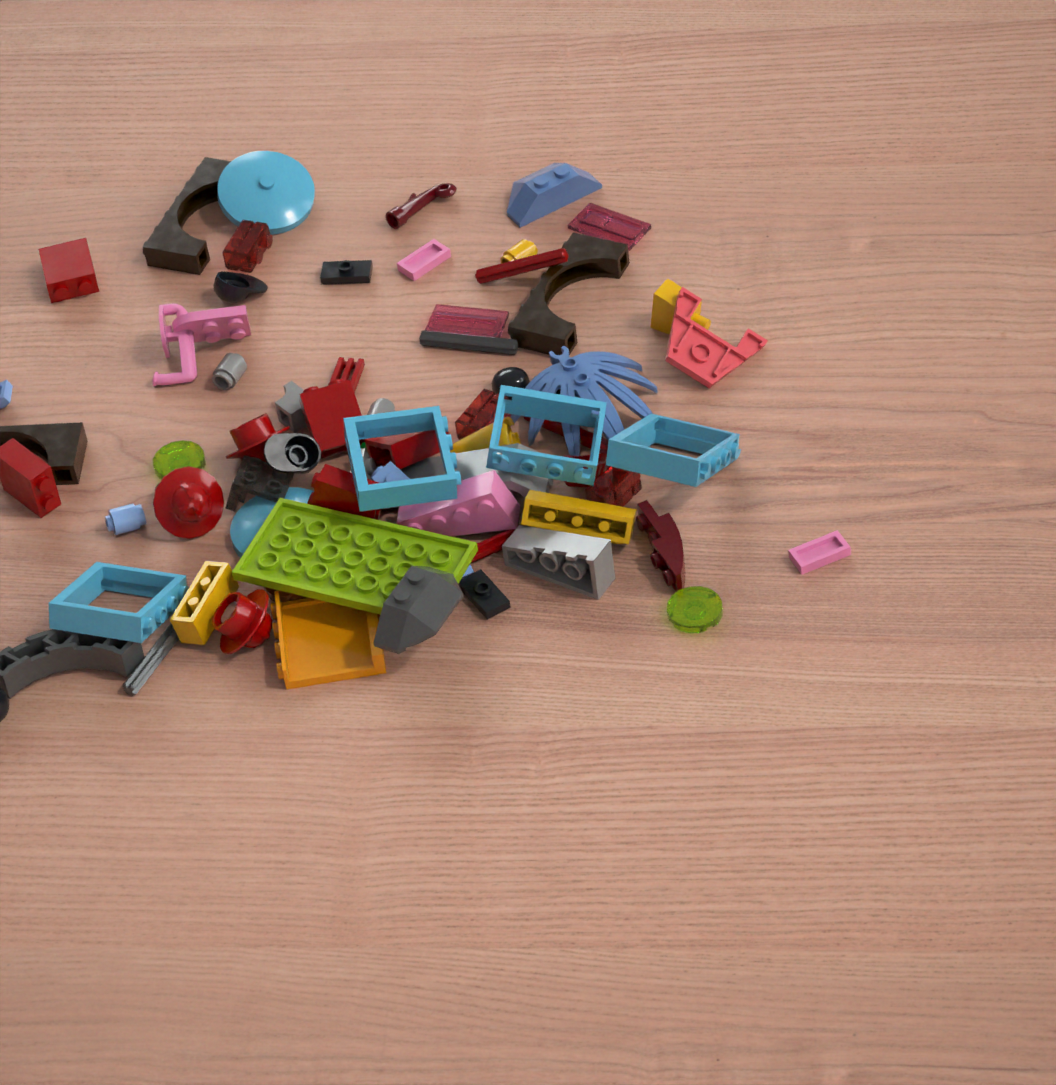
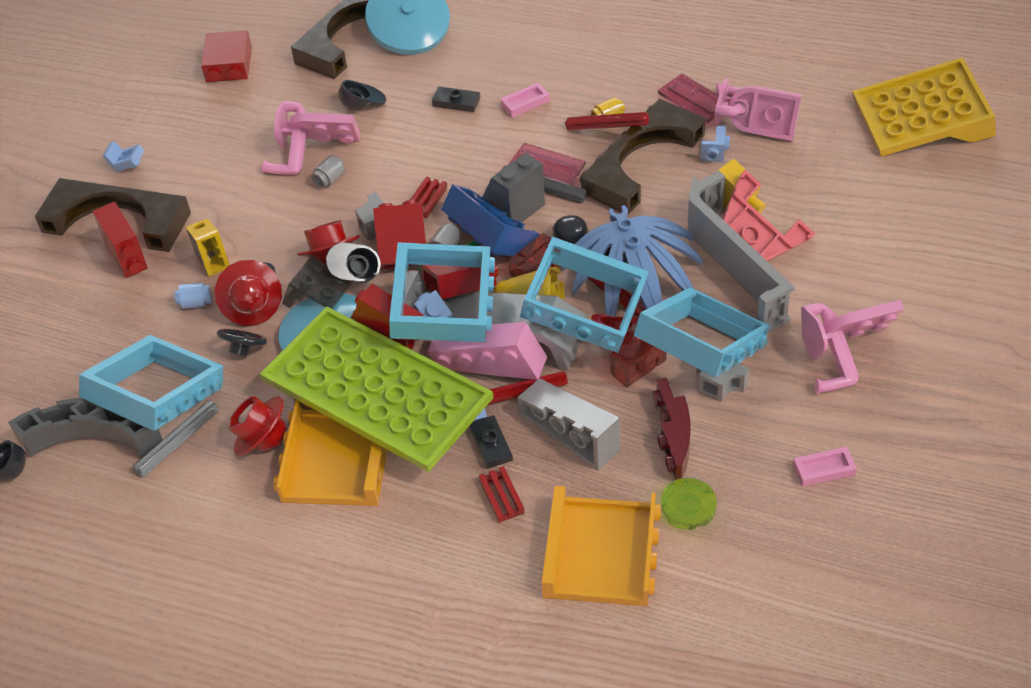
camera: 10 degrees right, 5 degrees up
(121, 460) = (206, 238): none -> yellow torso
(178, 455) = (260, 245): clear neon green tile -> none
(195, 552) = (241, 340): none -> black piece
(196, 610) = (227, 394): yellow brick -> none
(247, 246) = (378, 61): clear red brick -> none
(399, 215) = (514, 56): dark red plant -> none
(416, 608) = (415, 452): dark grey wedge -> none
(419, 388) = (486, 222): none -> blue wedge
(443, 354) = (518, 188): none -> dark grey slope
(498, 624) = (493, 477): none -> red tile
(548, 191) = (648, 57): medium blue wedge -> none
(578, 516) = (597, 382): yellow brick -> none
(620, 664) = (600, 550): none -> light orange panel
(644, 276) = (714, 150): none -> light blue bracket
(682, 226) = (758, 109): none -> bright pink plate
(688, 372) = (734, 253): none -> light grey panel
(704, 496) = (718, 387): none -> light grey brick
(808, 423) = (833, 331): none -> bright pink plate
(858, 194) = (926, 108): none -> yellow piece

